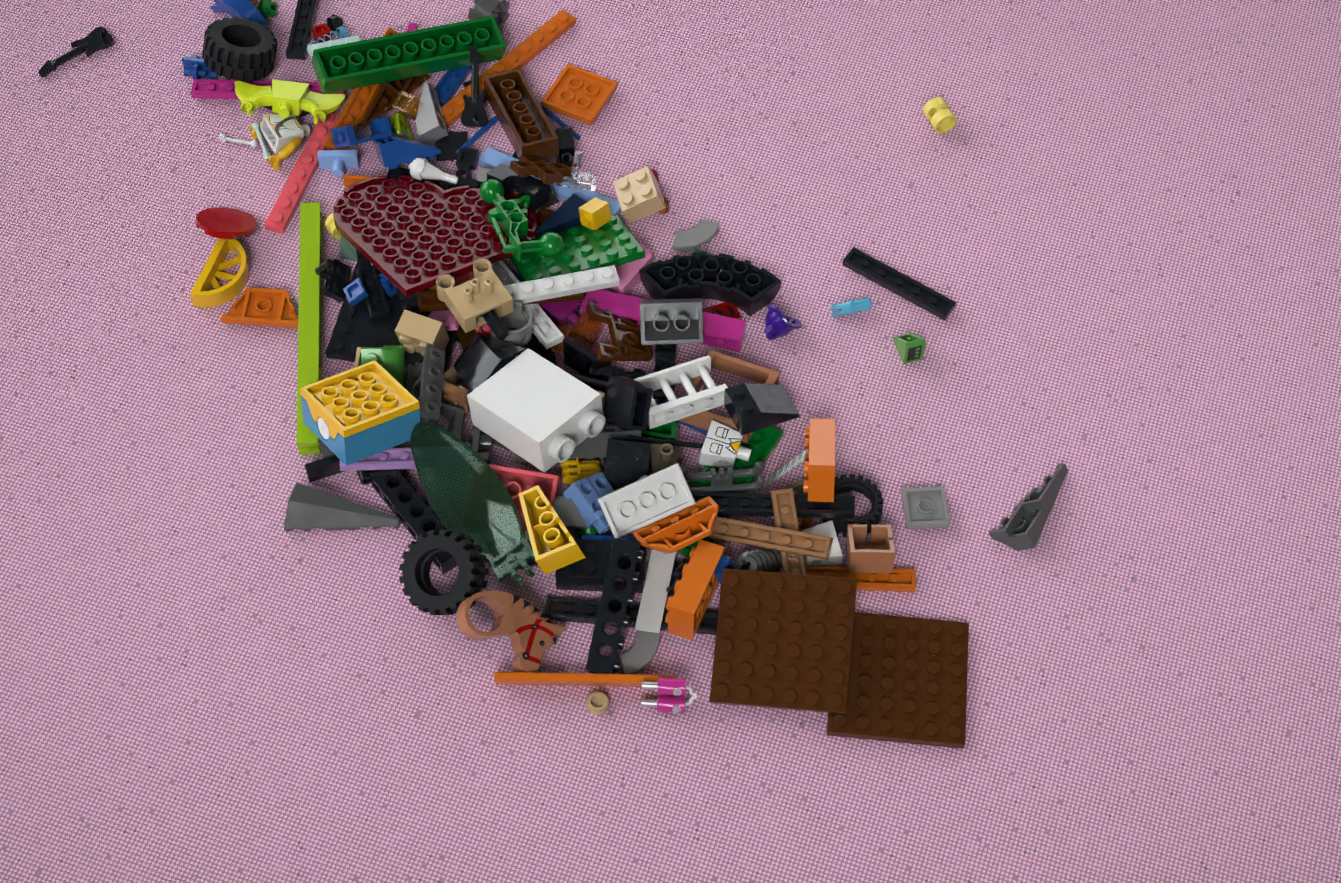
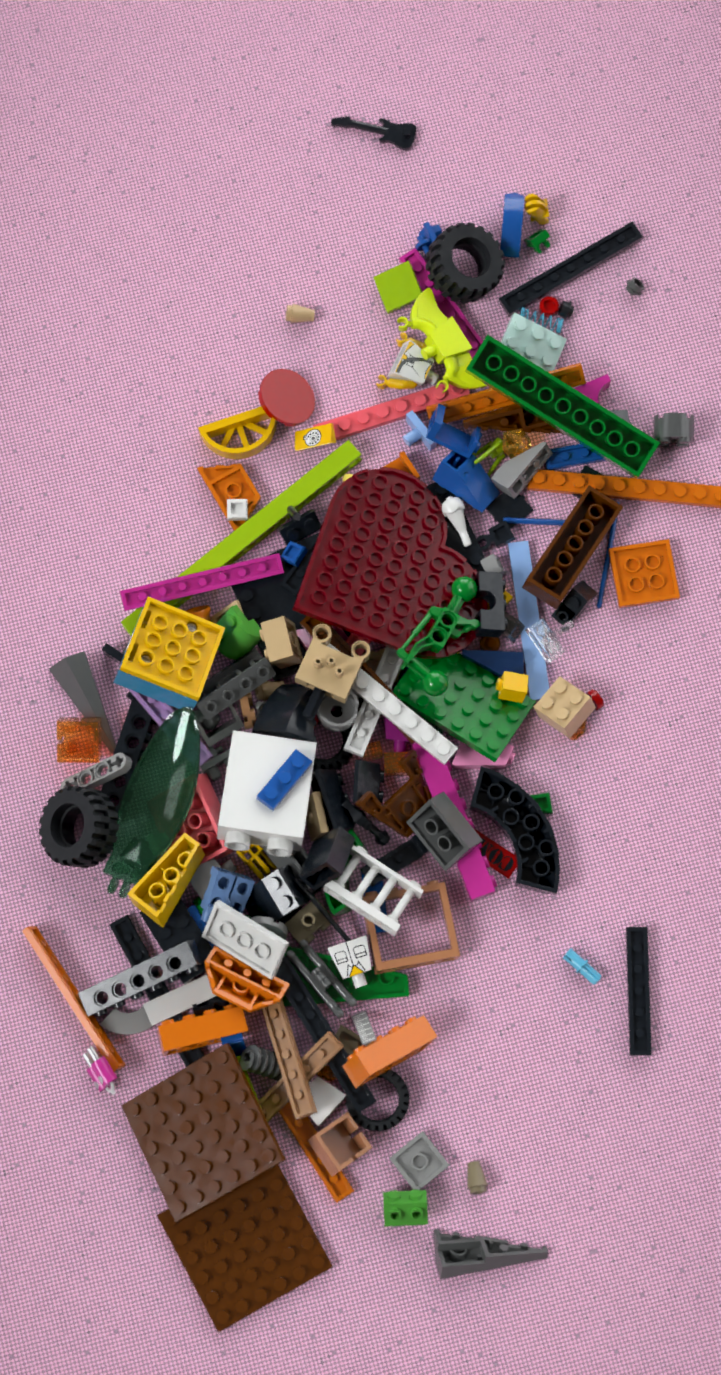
camera: 60 degrees right, 20 degrees up
(166, 181) = (298, 313): none -> tan cone
(213, 106) = (398, 287): none -> lime tile
(223, 138) = (389, 348): white hinge -> none
(266, 154) = (402, 338): light aqua hinge -> none
(276, 226) = (314, 437): none -> yellow slope
(282, 309) = (237, 509): none -> white tile
(319, 361) = (203, 581): none -> dark pink plate
(367, 533) = (81, 740): none -> clear orange piece
(404, 536) = (96, 769): none -> light grey beam
(474, 113) = (554, 501): black piece -> none
(516, 618) = (81, 914): nougat animal -> none
(541, 380) = (284, 780): none -> blue plate
(546, 171) = (517, 611): reddish brown plate -> none
(597, 703) = (64, 1019): tan tile -> none
(697, 236) = (562, 783): light grey tile -> none
(758, 406) = (406, 967): black slope -> none
(778, 324) = (519, 919): dark purple helmet -> none
(910, 347) = (577, 1042): bright green slope -> none
(957, 536) = (405, 1208): none -> bright green brick
(968, 476) = (476, 1179): none -> dark tan cone

